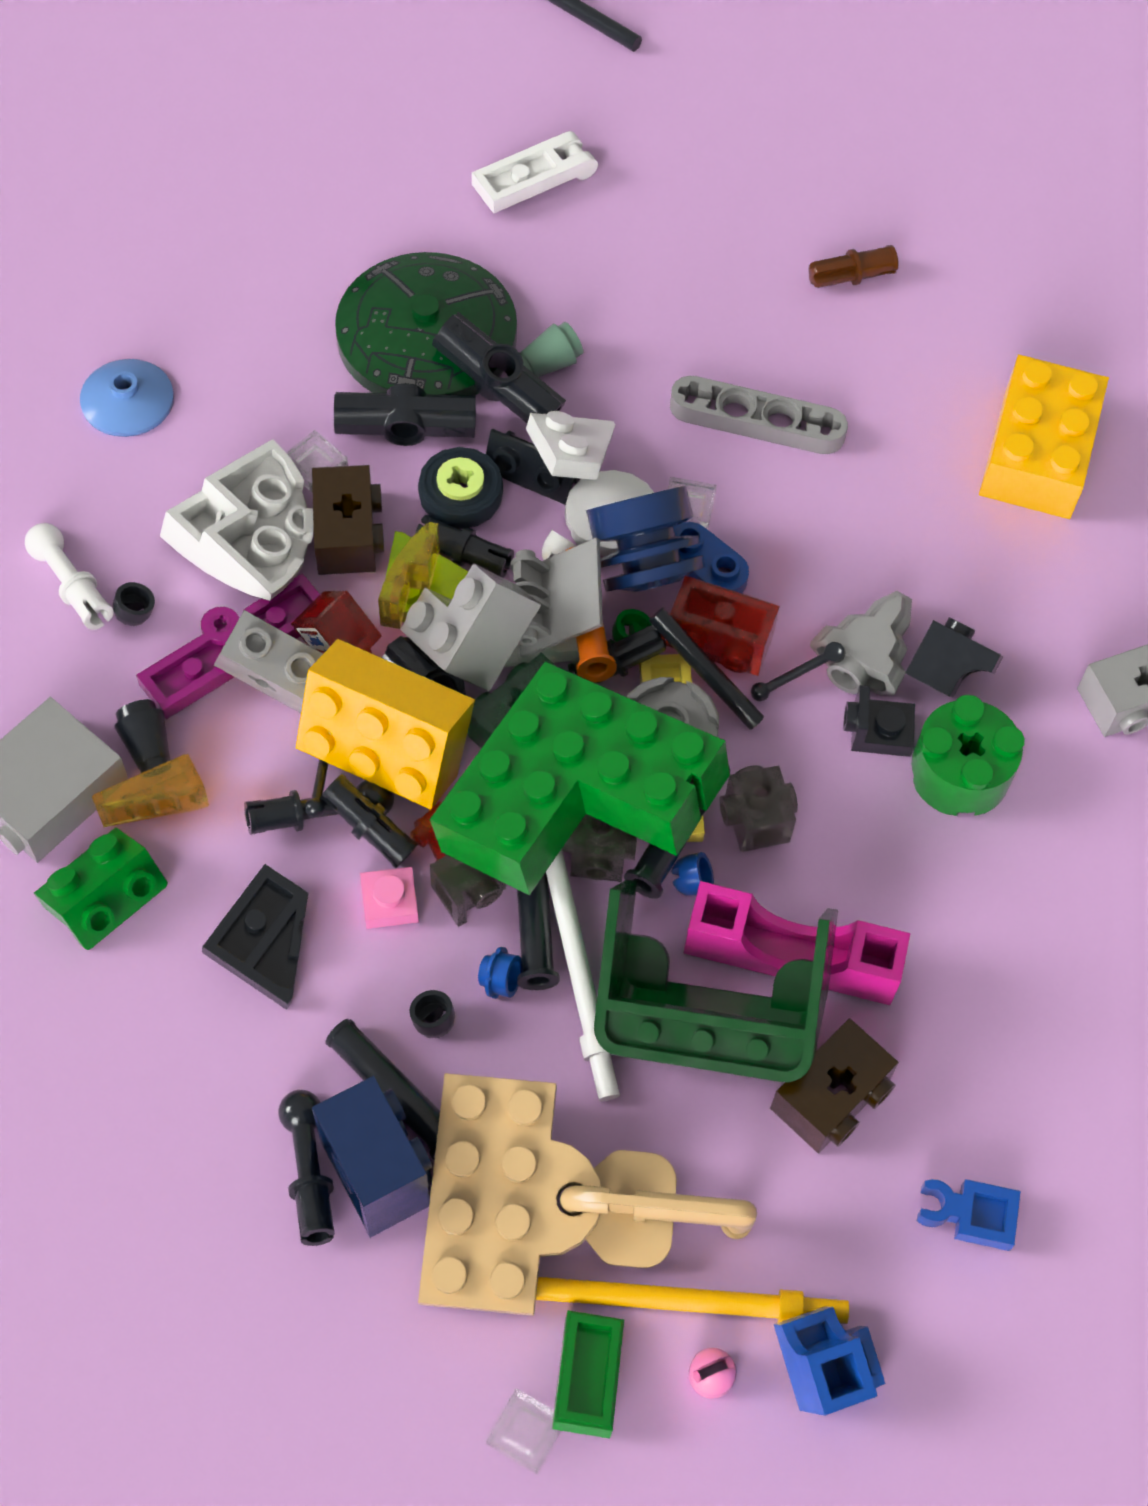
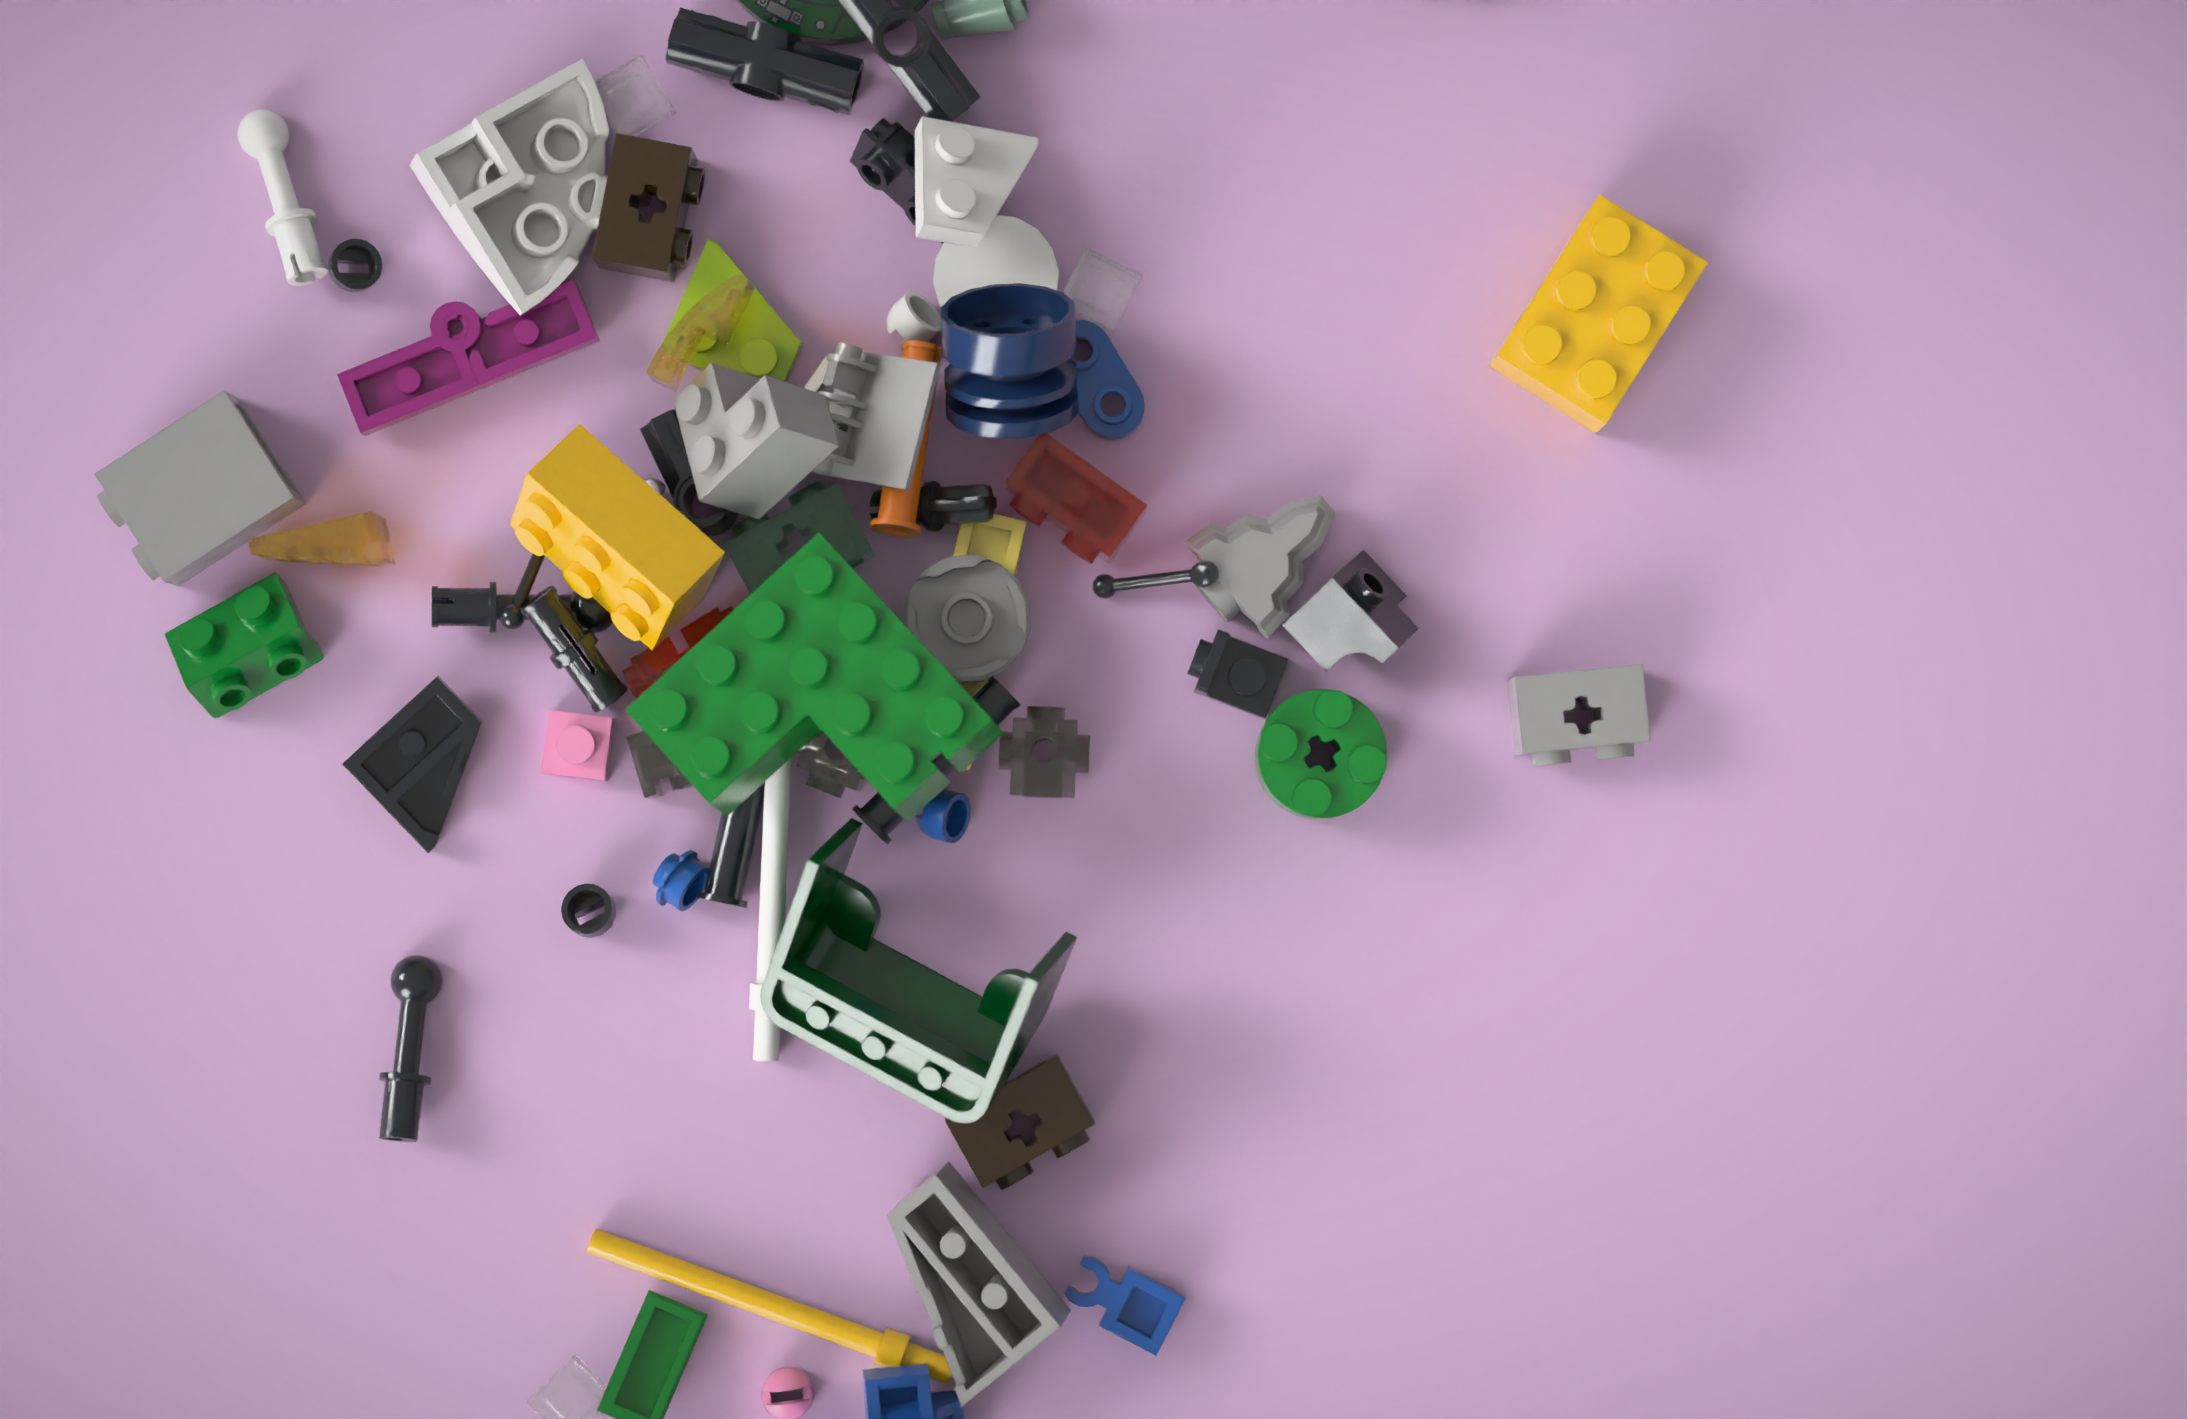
camera: 15 degrees right, 25 degrees up
(143, 733) = (333, 461): black cone -> none
(268, 660) = (500, 409): light grey brick -> none
(335, 617) = (594, 379): clear red brick -> none
(369, 1061) = (524, 984): black pin -> none
(372, 1155) = (475, 1075): dark blue brick -> none
(449, 501) = (813, 216): black wheel -> none
(468, 548) = (790, 282): black pin -> none
(500, 1192) = (604, 1157): tan plate -> none
(634, 619) = (980, 462): green hinge -> none
(706, 668) = (1036, 553): black bar -> none
(740, 932) = (1020, 937): dark pink arch -> none
(760, 407) = (1240, 164): light grey beam -> none
(843, 1220) = (974, 1281): none -> light grey wedge

